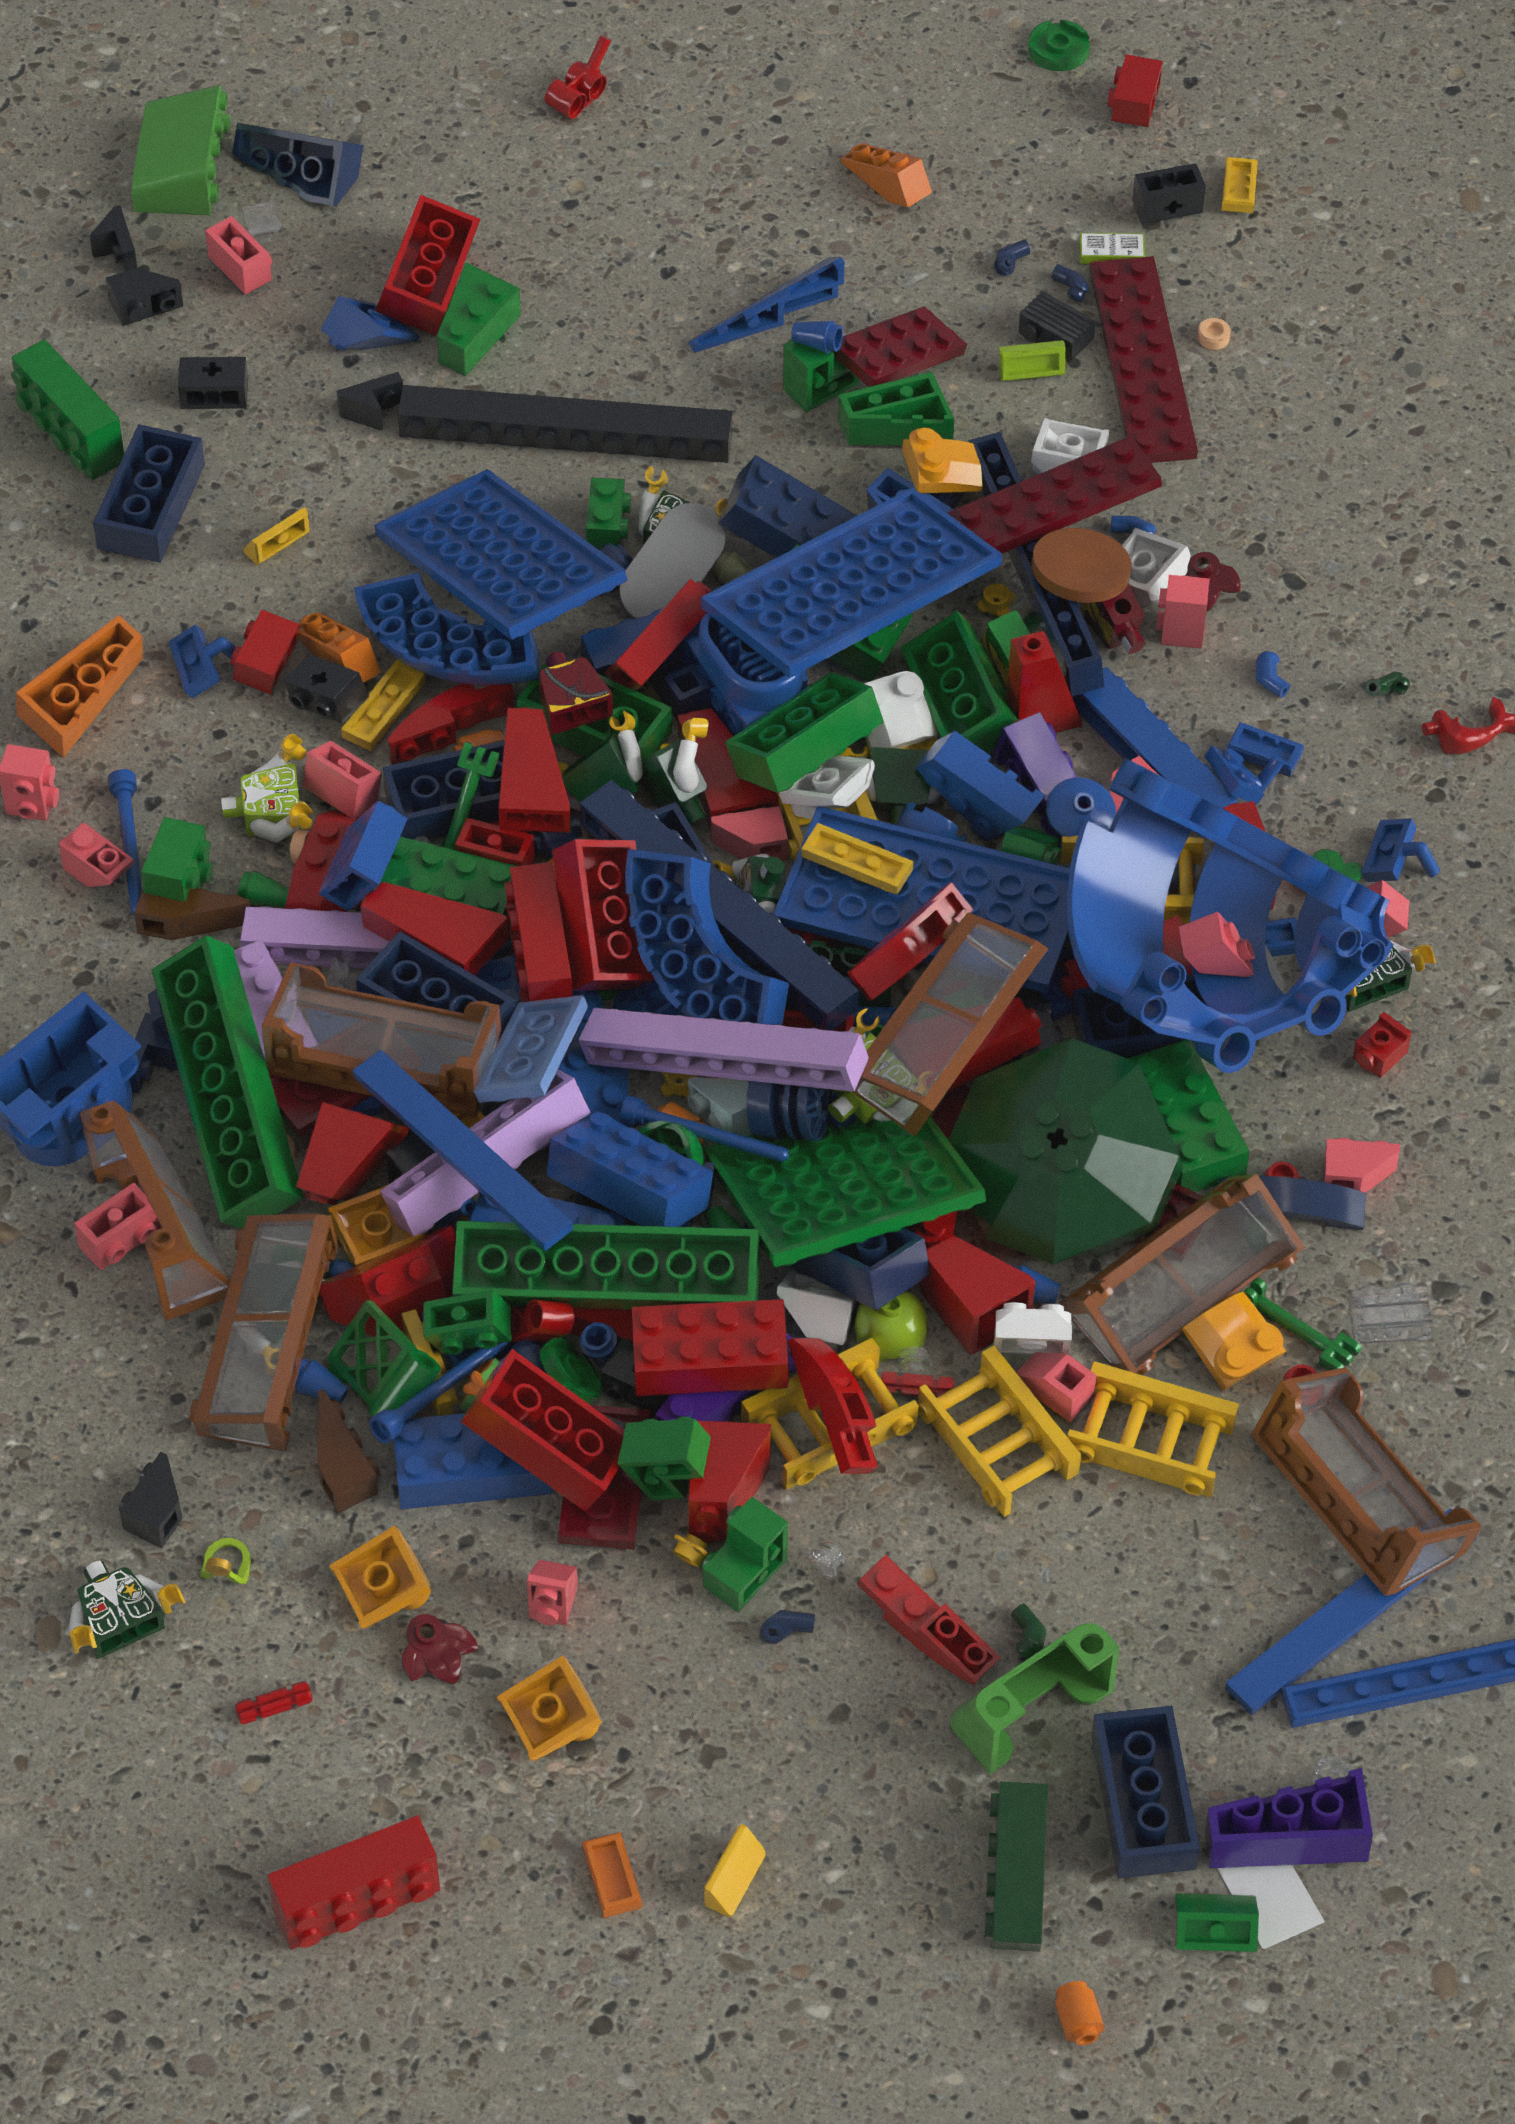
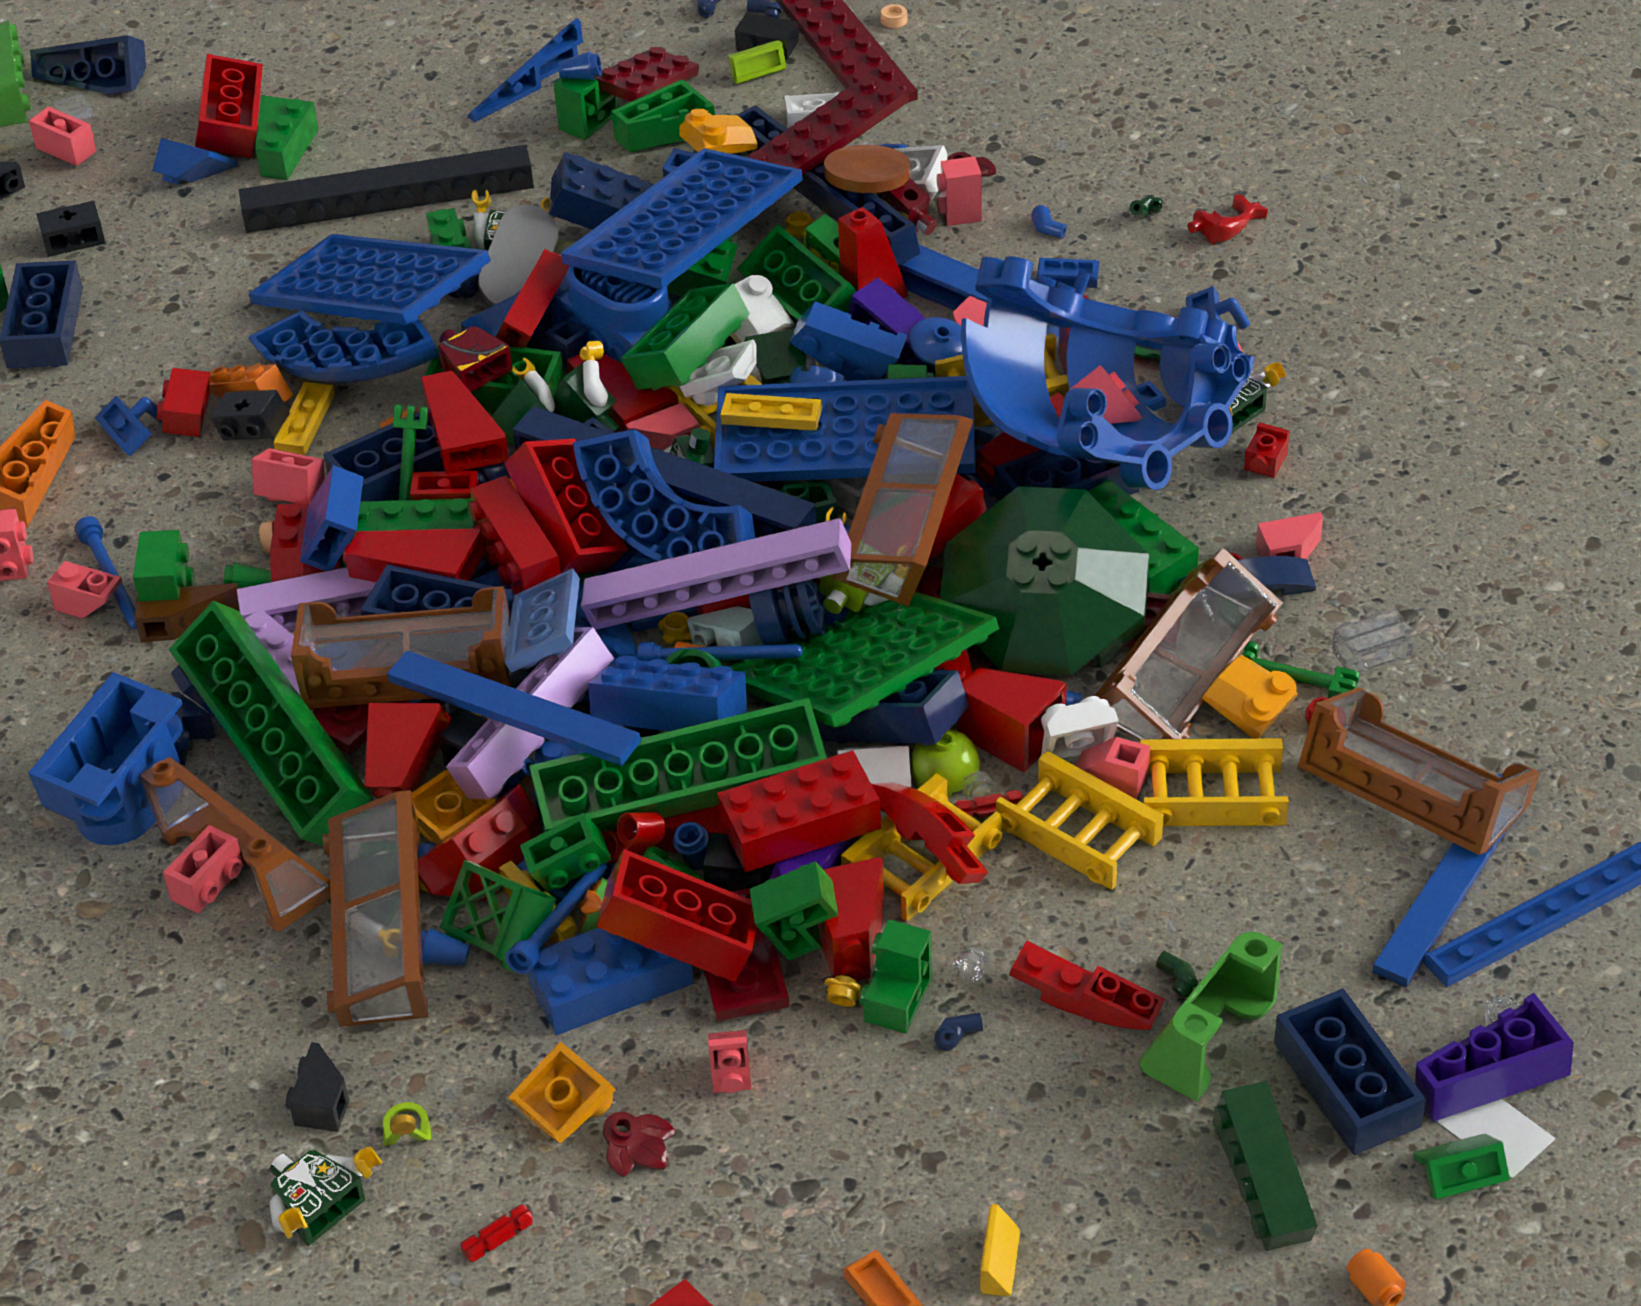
camera: 15 degrees left, 10 degrees down
(272, 796) = (229, 505): torso -> none
(278, 537) = (166, 321): yellow slope -> none
(342, 1466) = (490, 1011): reddish brown slope -> none
(364, 401) = (211, 210): black slope -> none
(436, 721) = (366, 408): red slope -> none
(551, 1709) = (768, 1160): light orange slope -> none
(909, 943) = (843, 459): red slope -> none

